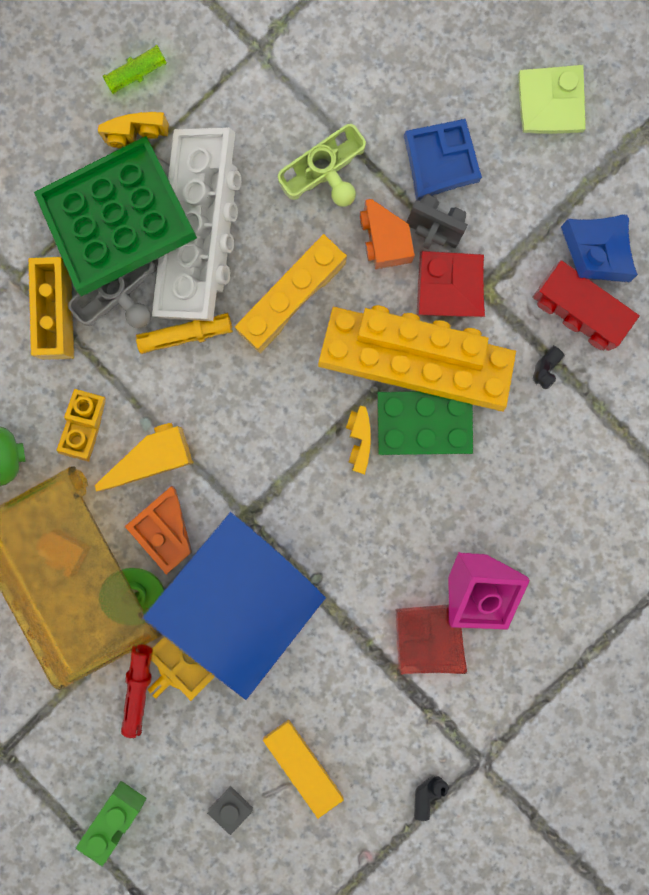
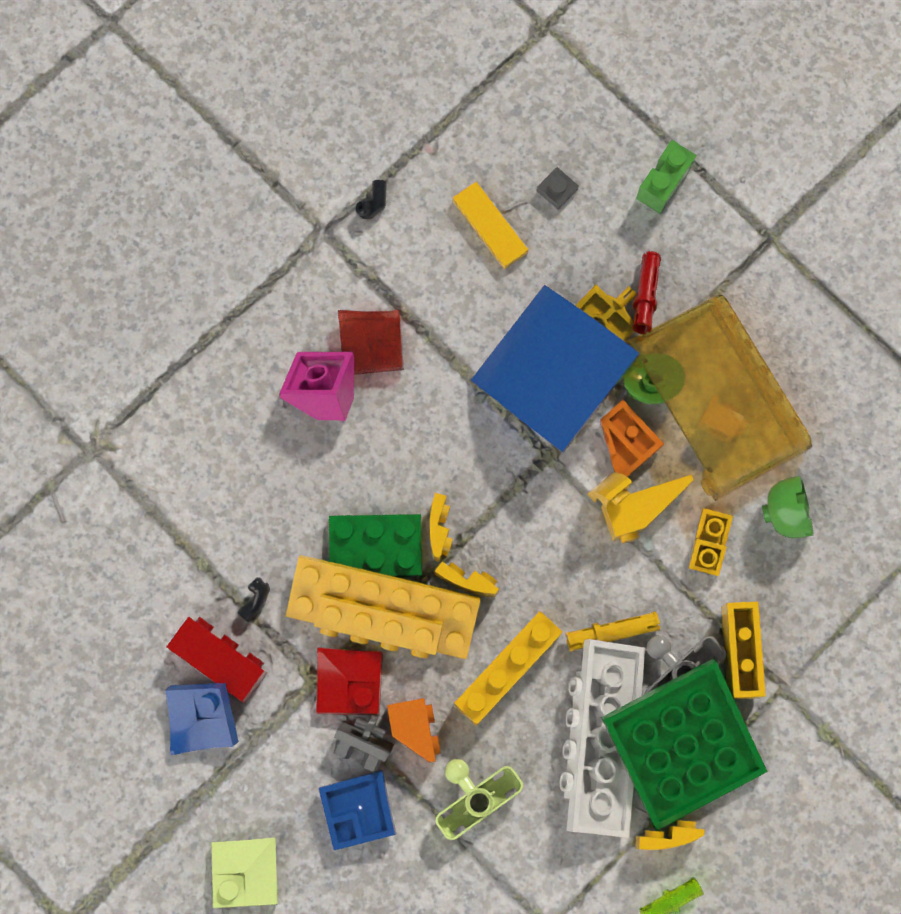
camera: 175 degrees right, 10 degrees down
(180, 476) = (611, 489): none -> yellow slope
(321, 381) = (476, 584): none -> yellow slope

